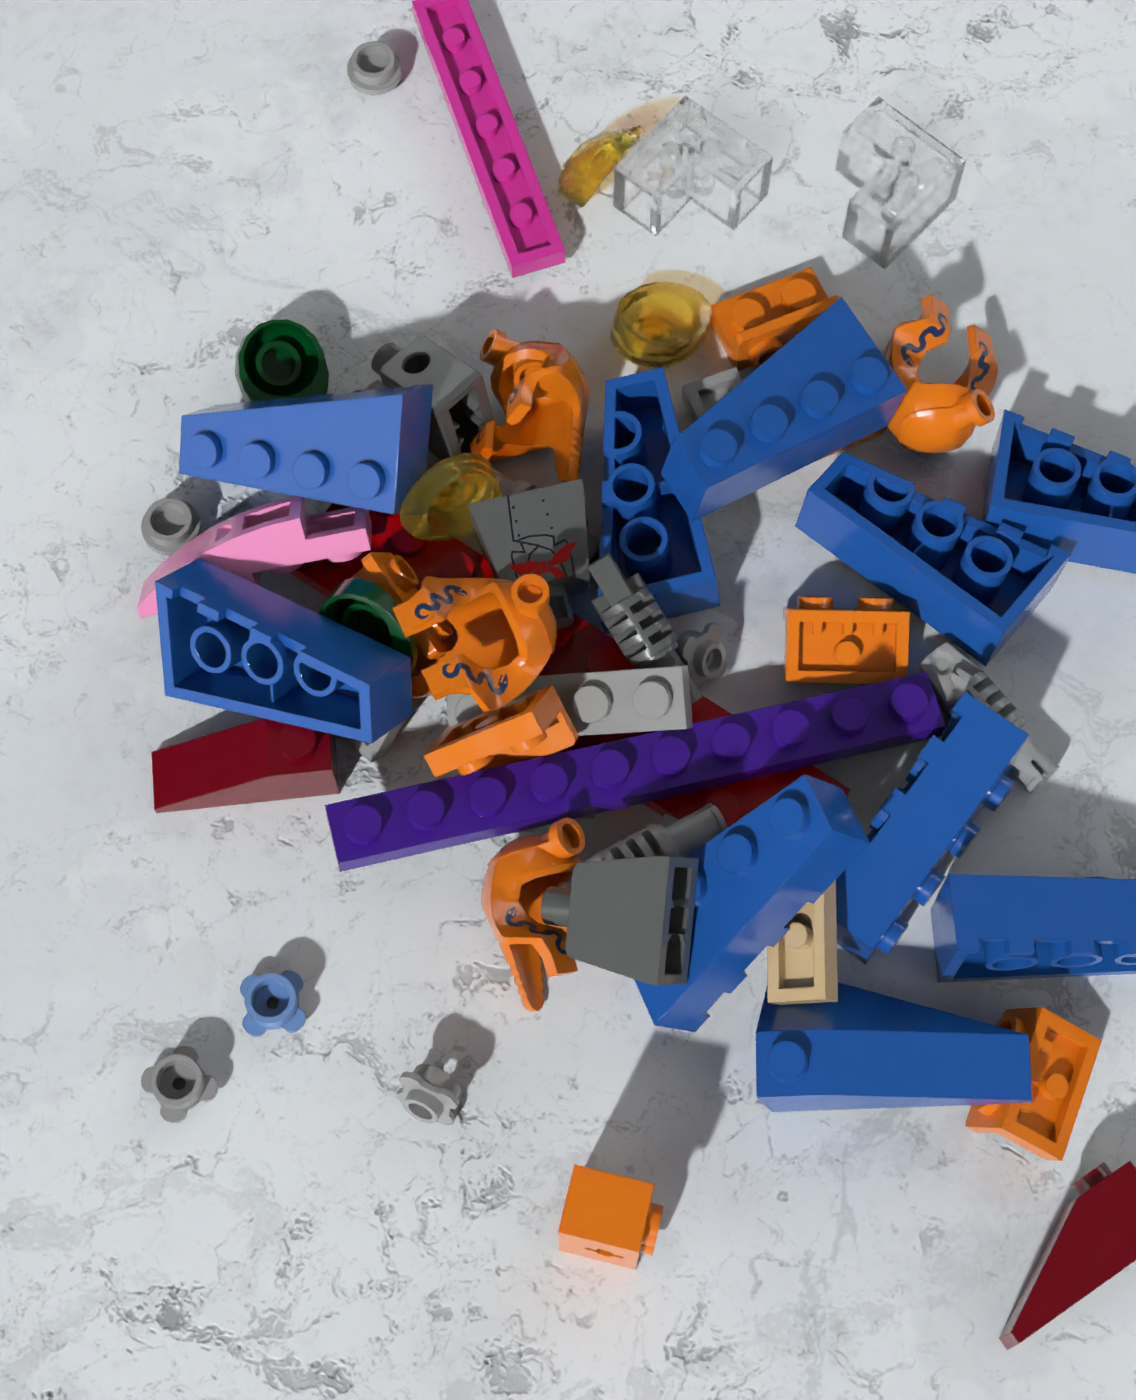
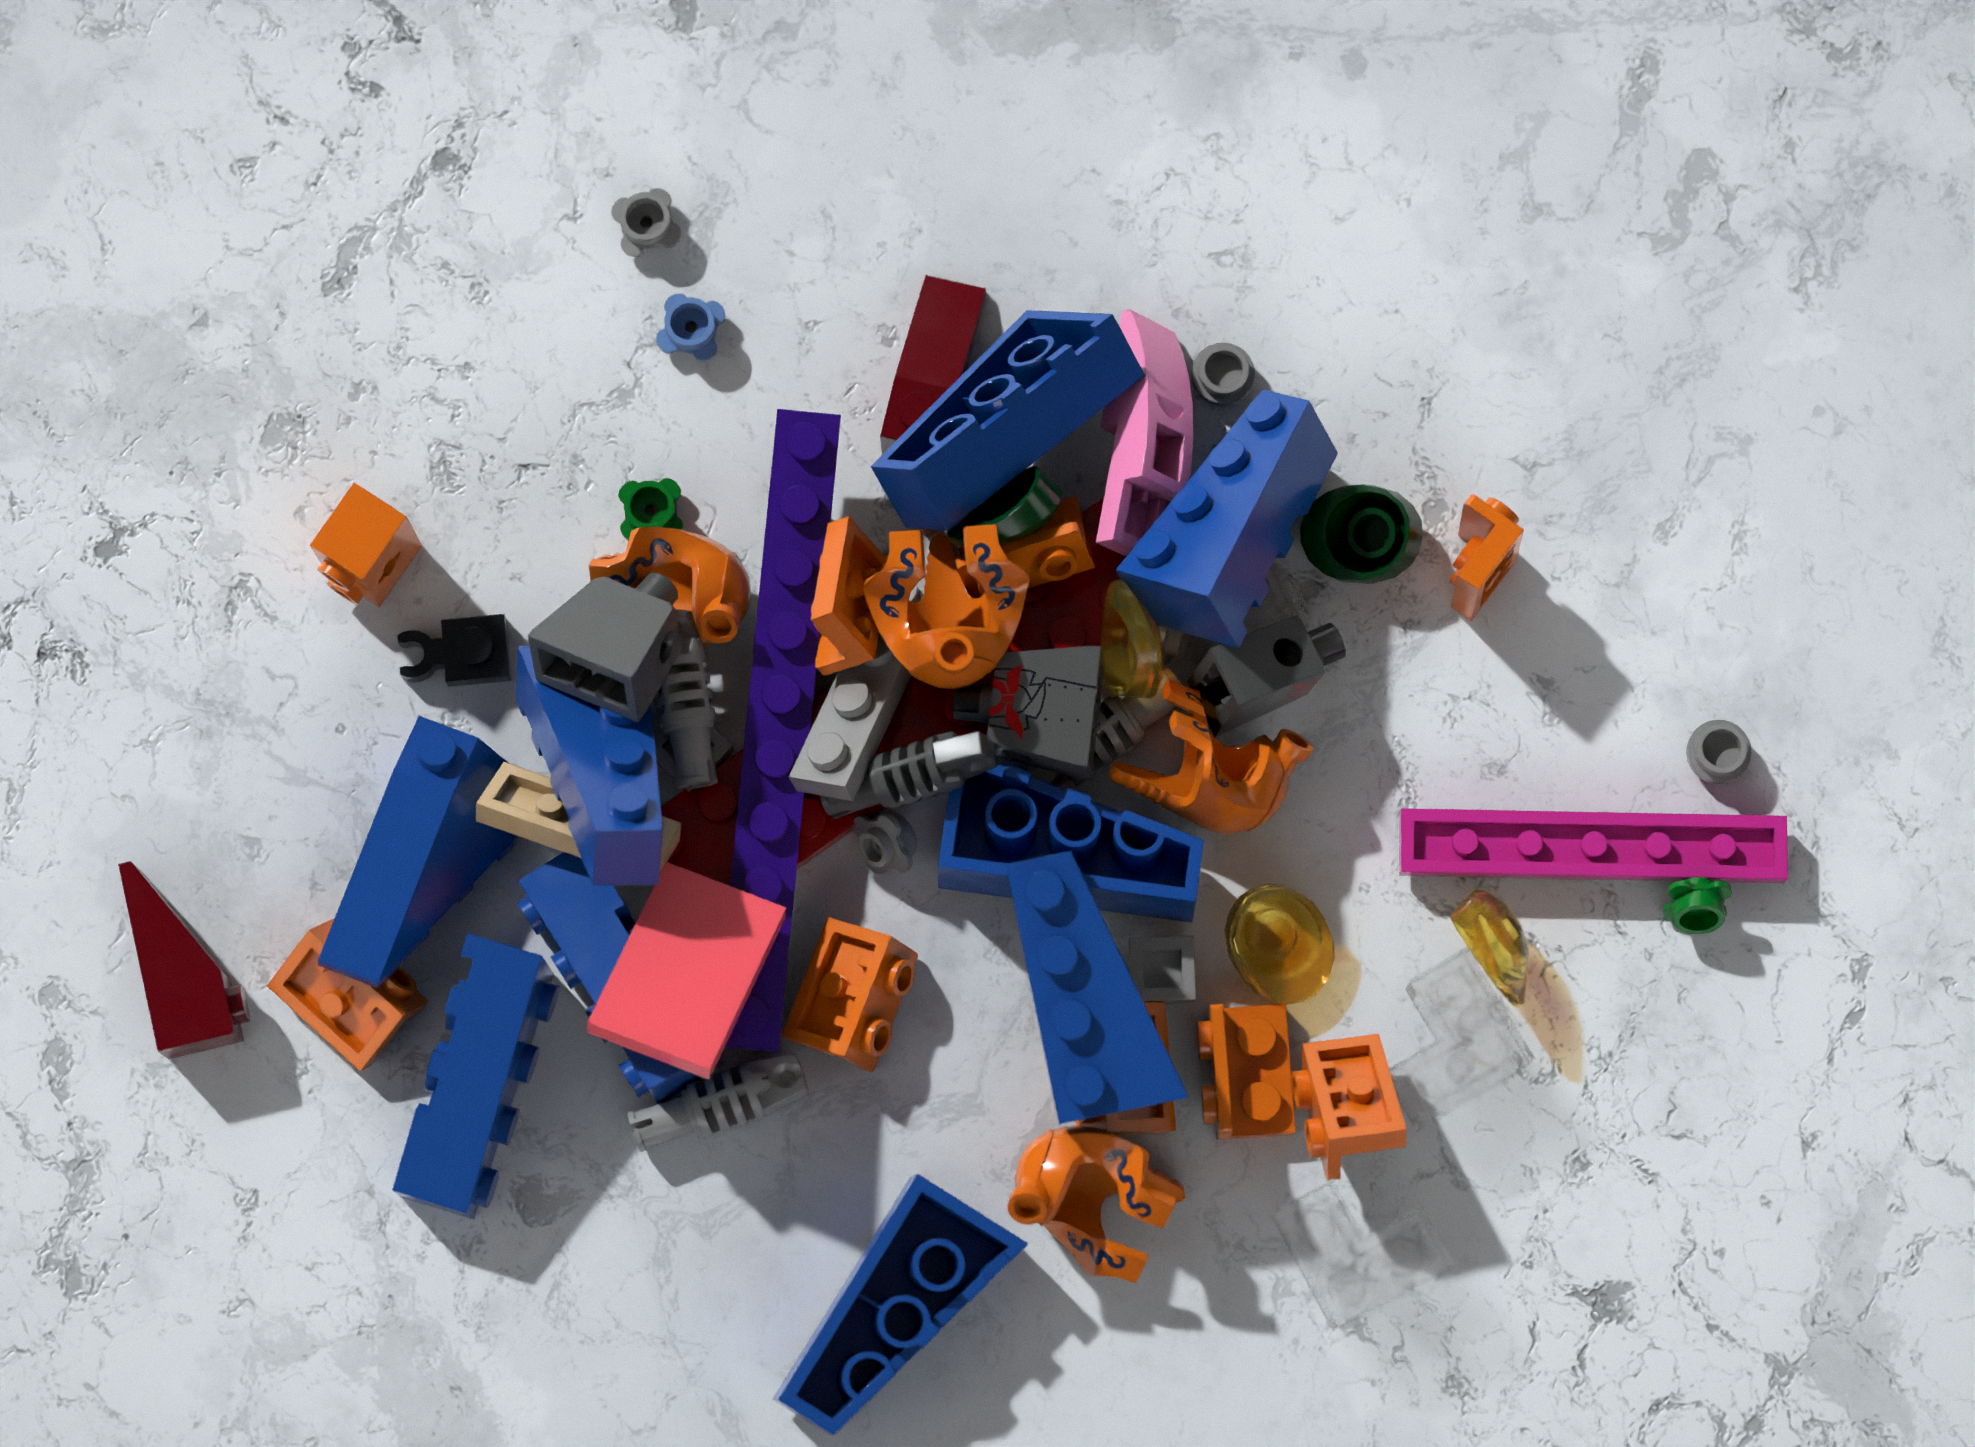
camera: 110 degrees right, 10 degrees up
(273, 252) = (1489, 553): none -> orange bracket
(429, 1094) = (546, 437): light grey plate -> none
(466, 957) = (640, 495): none -> green plate
(507, 43) = (1697, 905): none -> green plate
(664, 1097) = (469, 651): none -> black plate
(778, 218) = (1347, 1100): none -> orange bracket
(909, 742) = (686, 970): none -> coral tile
(930, 555) = (890, 1120): blue wedge -> none

